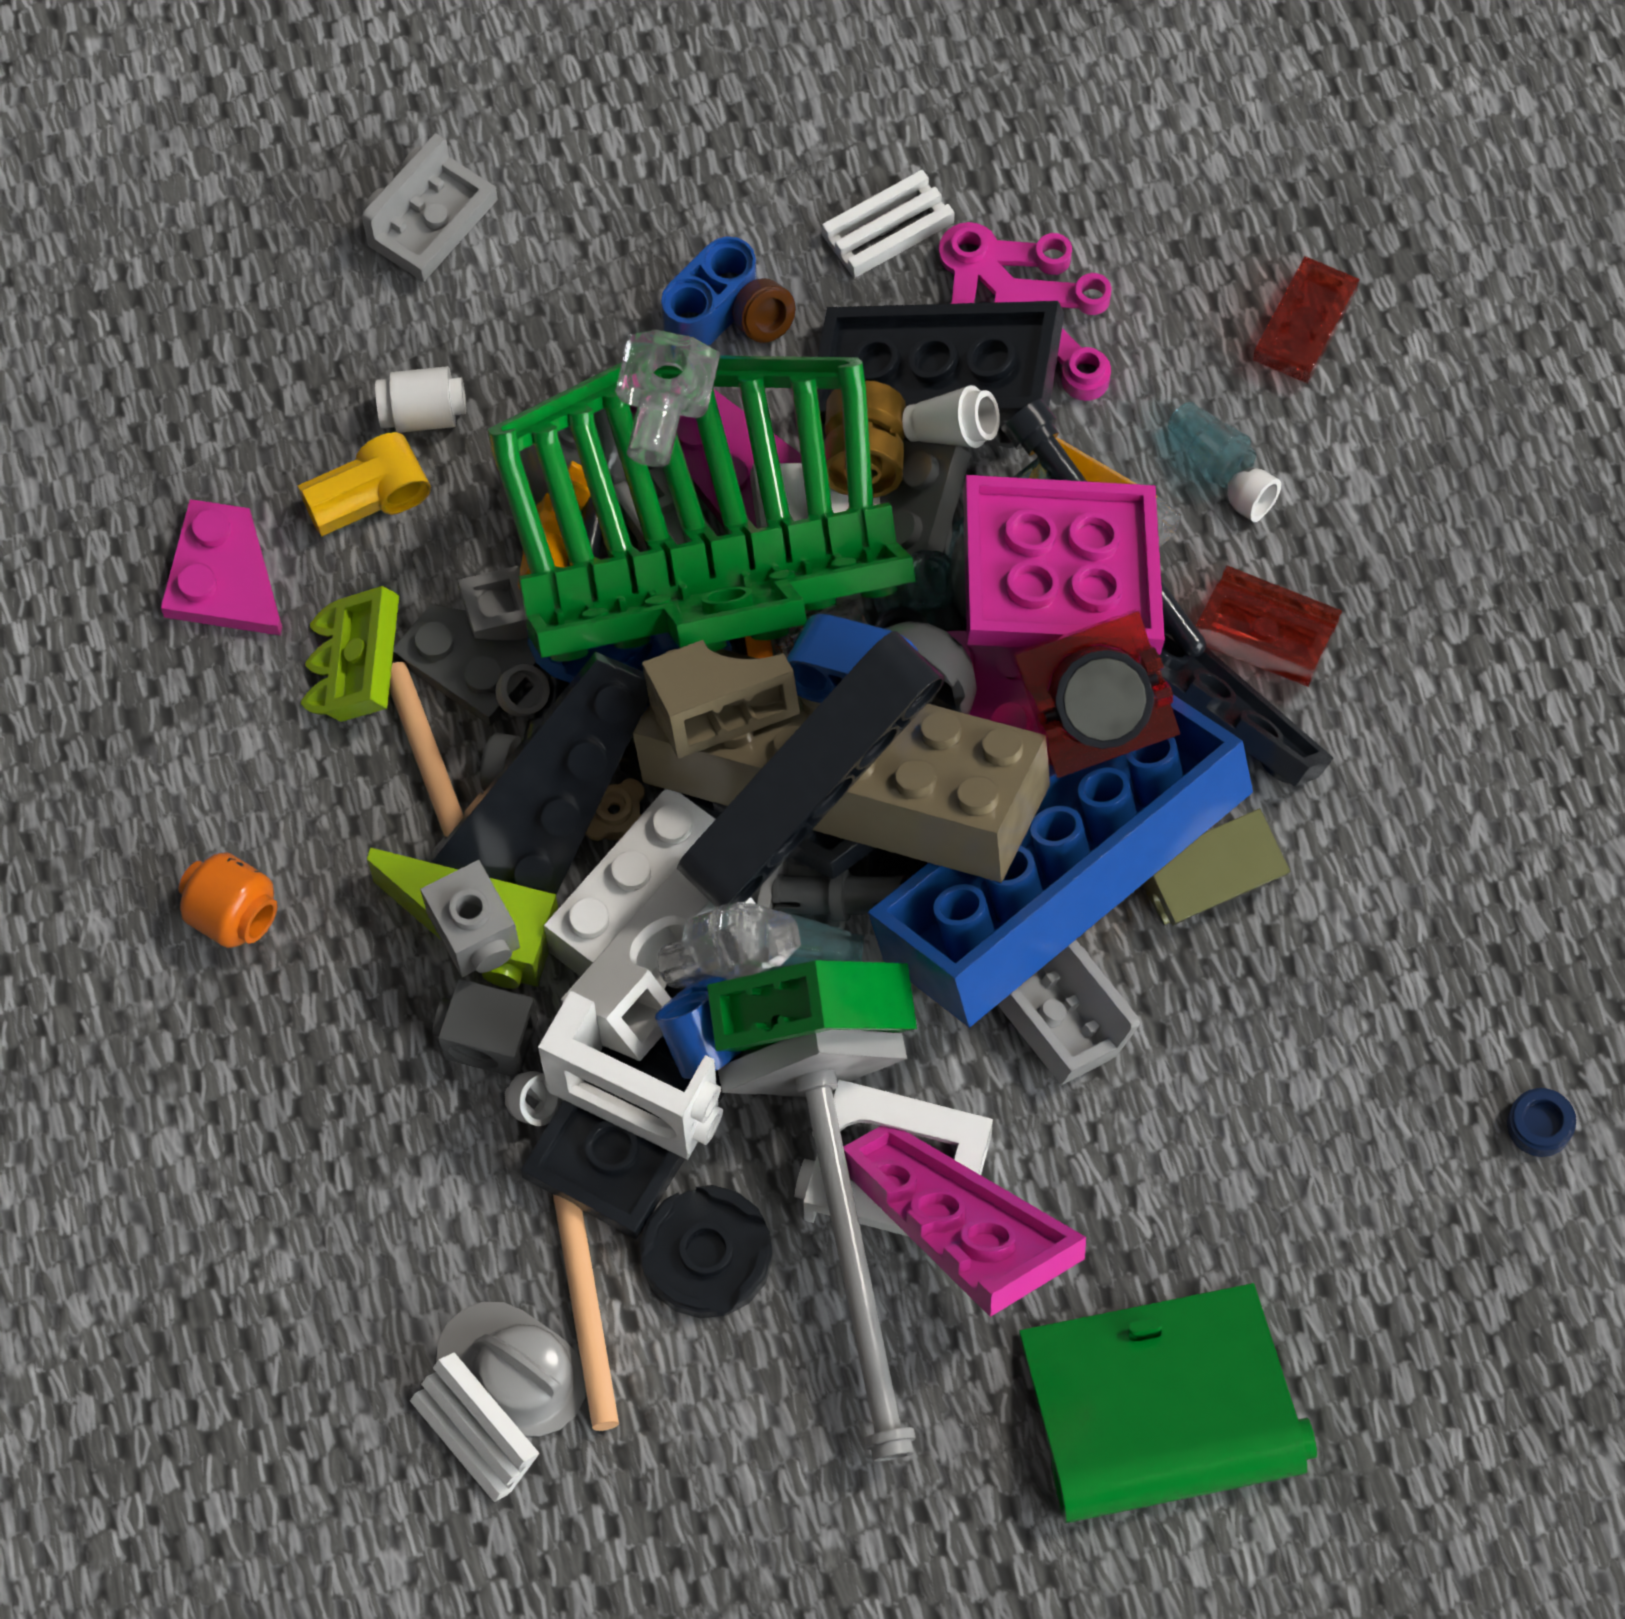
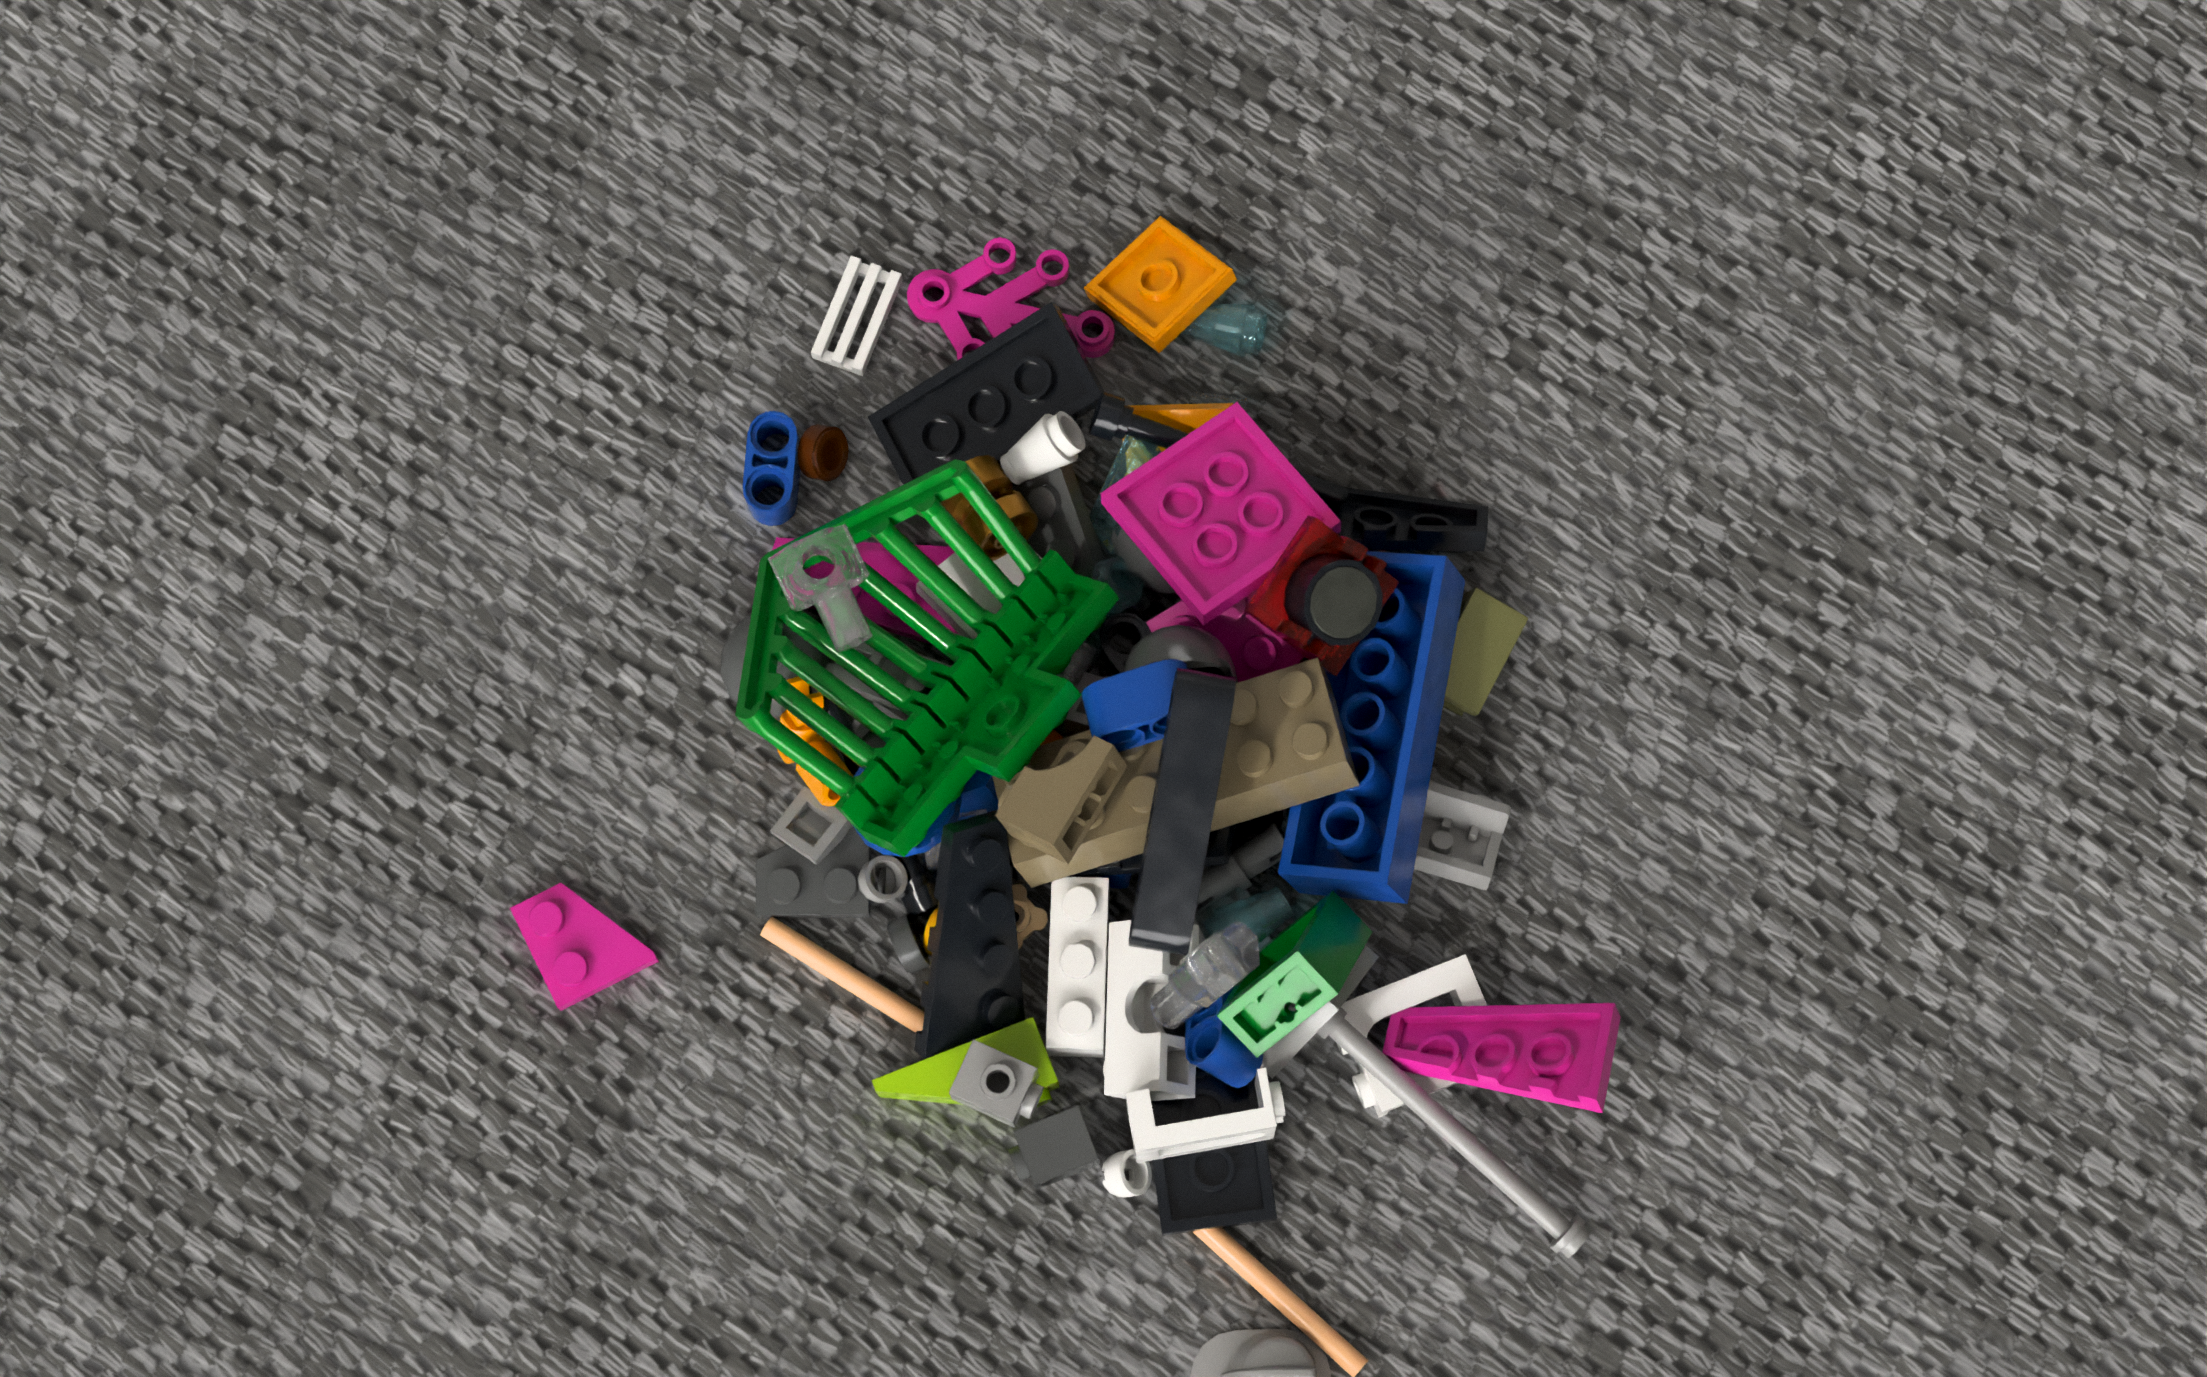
camera: 35 degrees left, 10 degrees up
(227, 900) = (792, 1194): orange head -> none
(356, 656) = (734, 940): lime plate -> none
(381, 478) = (641, 789): yellow piece -> none
(420, 399) = (621, 705): white brick -> none
(426, 209) = (505, 551): light grey bracket -> none
(706, 1275) = (1326, 1212): black tile -> none
(1164, 1403) = (1730, 1071): green door -> none
(1178, 368) = (1160, 284): none -> light orange plate
(1253, 492) = (1281, 343): white hinge -> none
(1268, 625) = (1370, 439): clear red plate -> none
(1306, 319) = (1220, 179): clear red plate -> none
(1541, 1122) = (1822, 673): dark blue tile -> none

